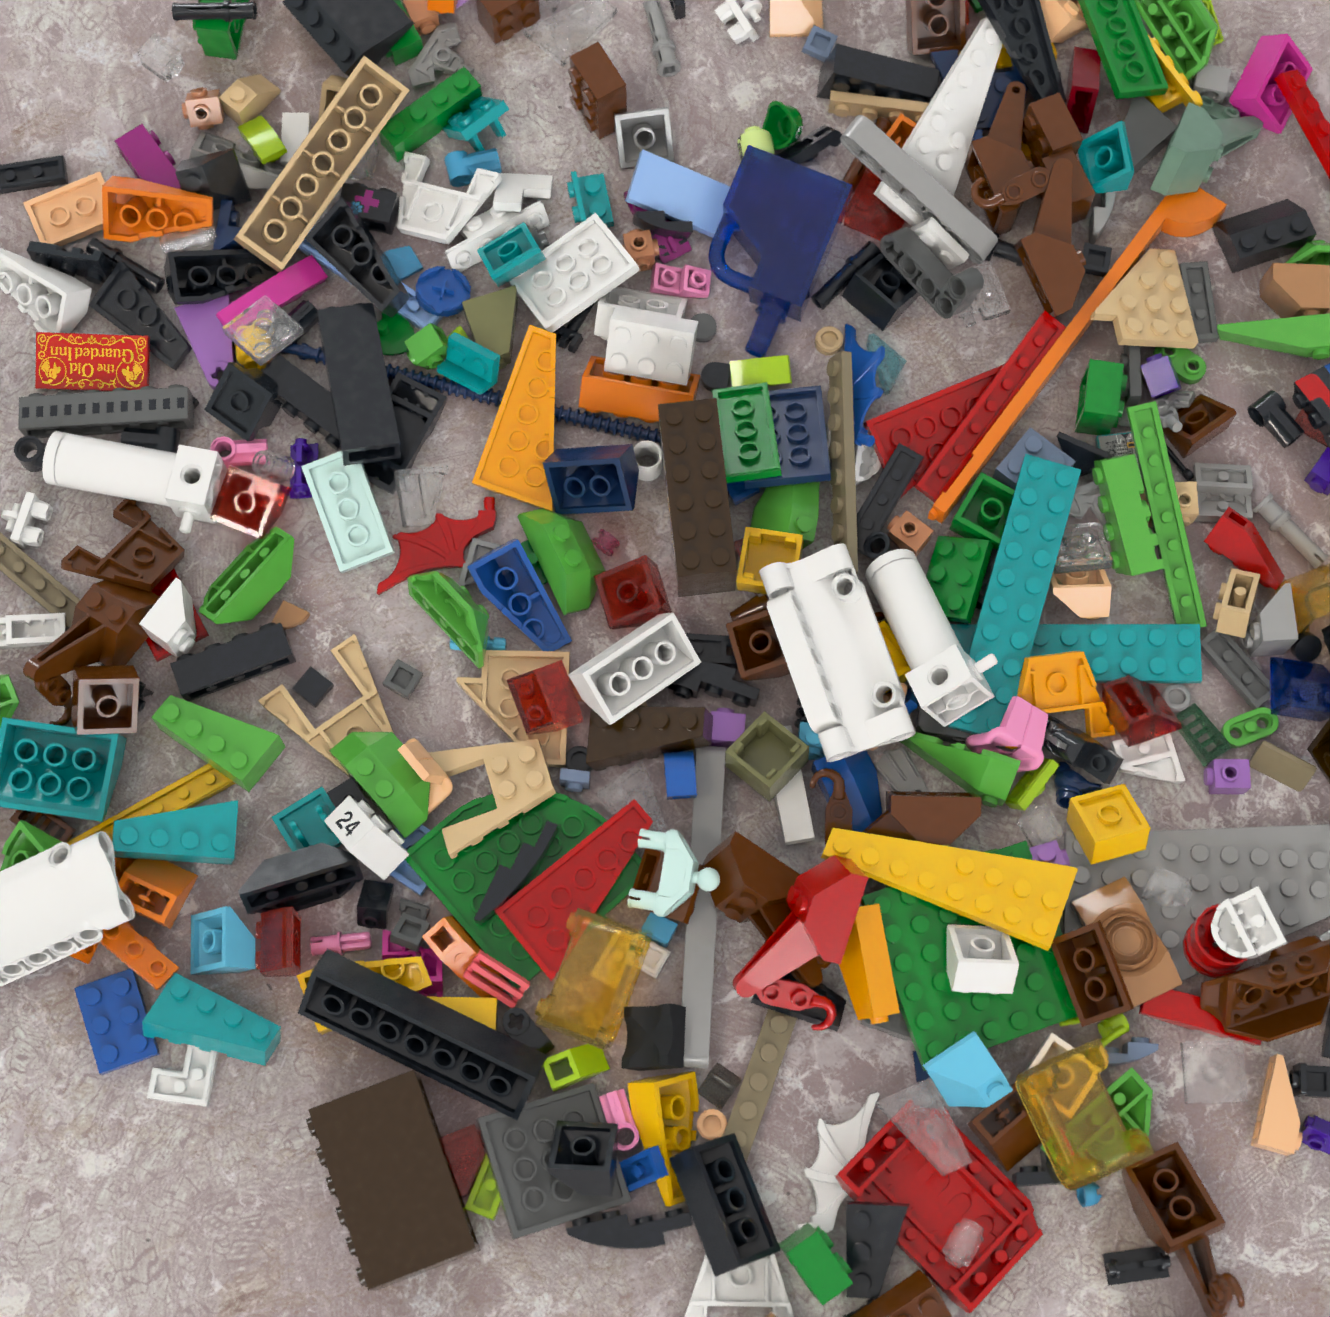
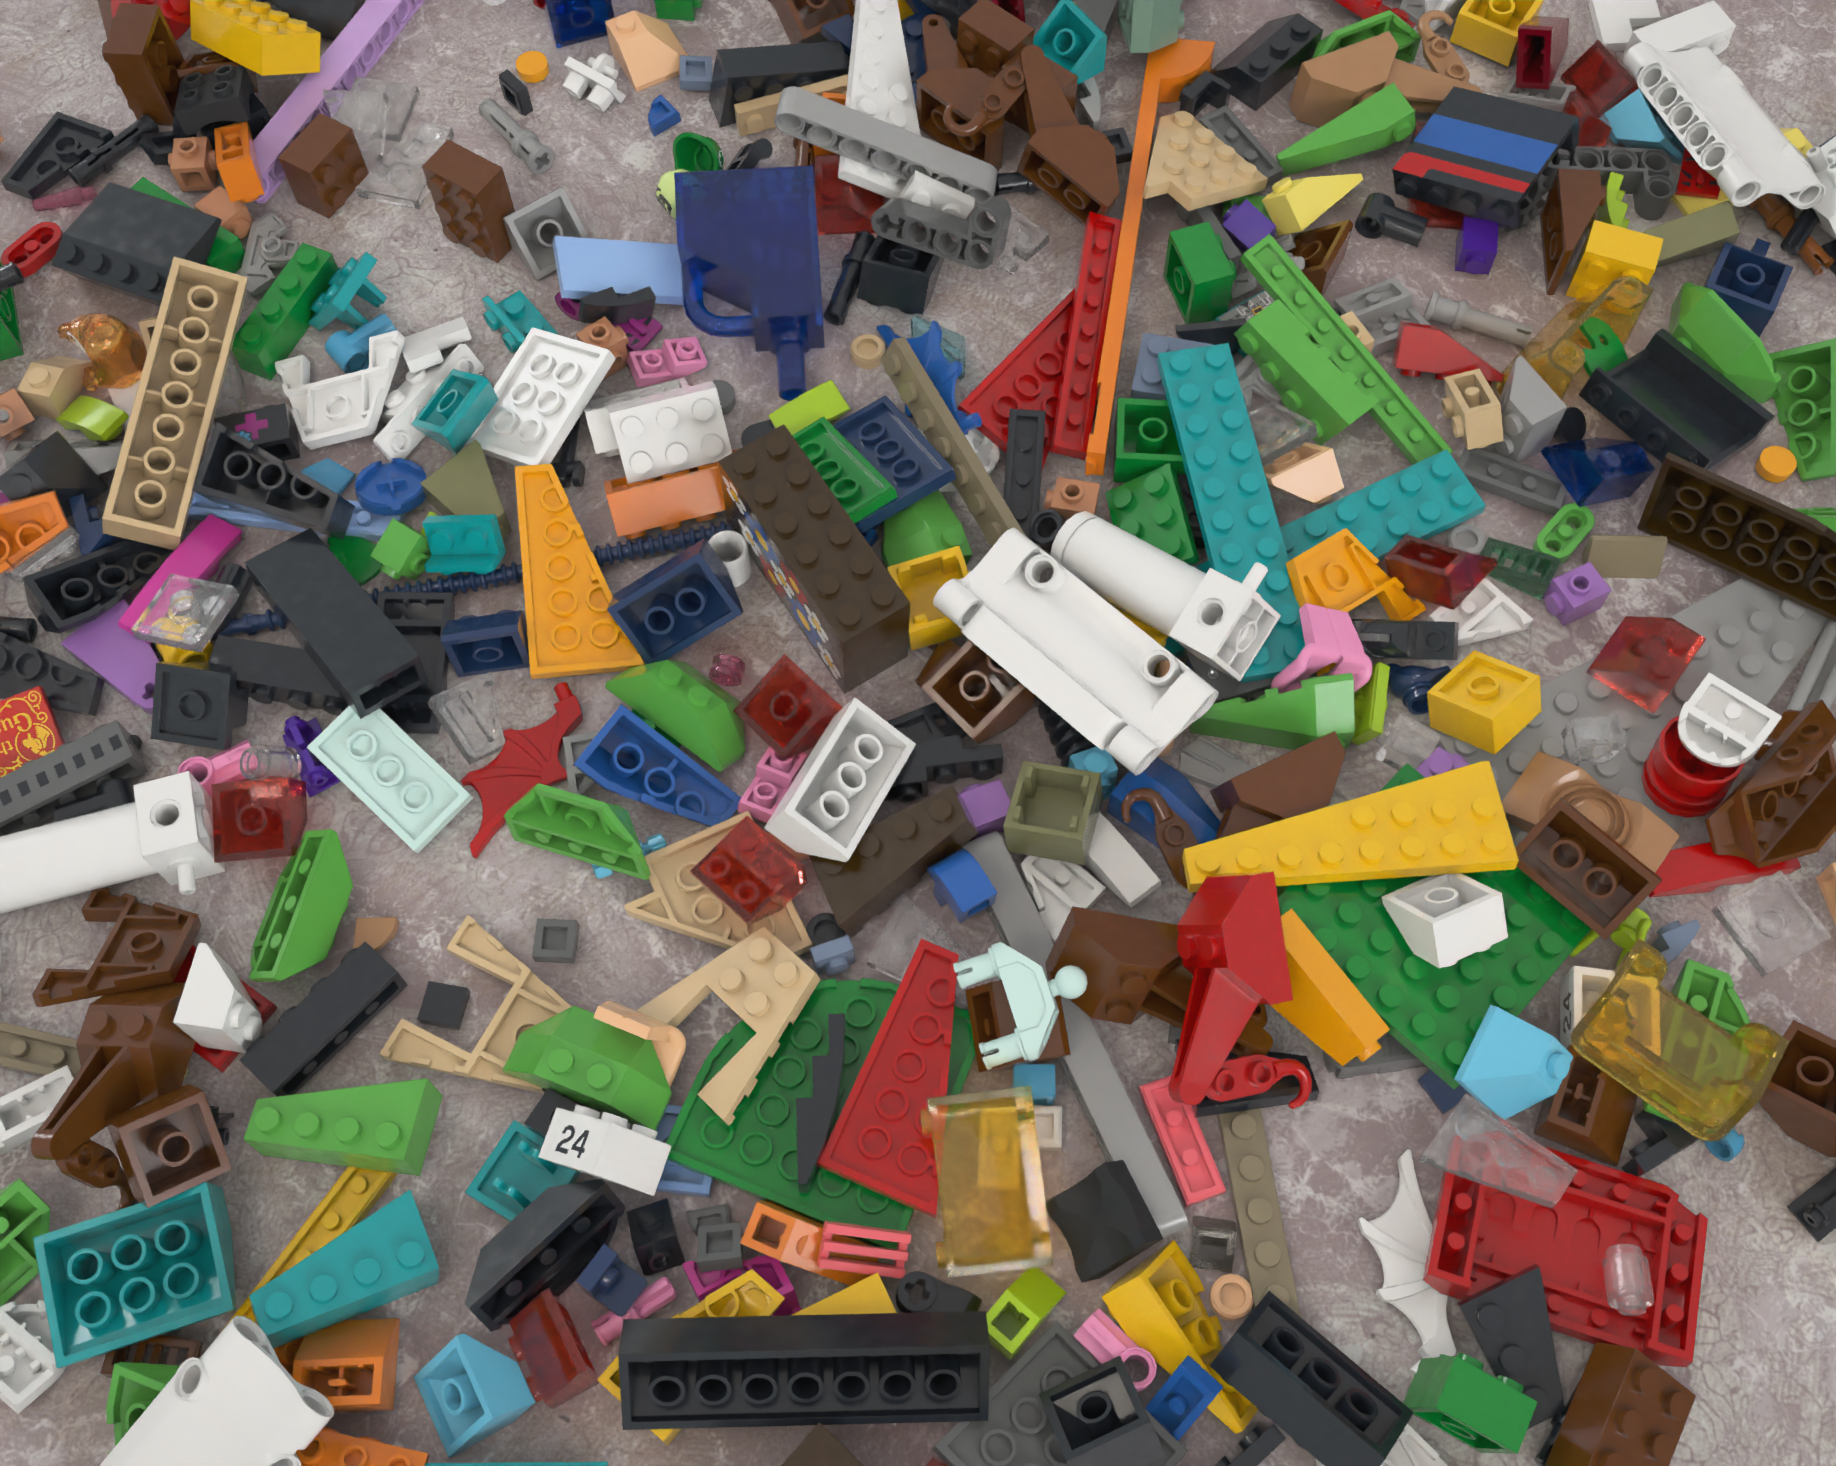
camera: 25 degrees left, 10 degrees down
(296, 92) = (111, 345): none -> clear orange piece
(334, 920) = (611, 1281): none -> dark blue slope
(453, 444) = (487, 643): none -> dark blue slope
(594, 640) = (770, 784): none -> bright pink slope
(734, 1019) = (1182, 1144): none -> coral tile
(746, 810) = (1058, 887): none -> white wing
(777, 68) = (662, 116): none -> blue tile
(1190, 241) = (1204, 91): none -> black bracket
(1214, 372) = (1301, 201): none -> light yellow slope
(1241, 849) = (1646, 658): none -> clear red slope

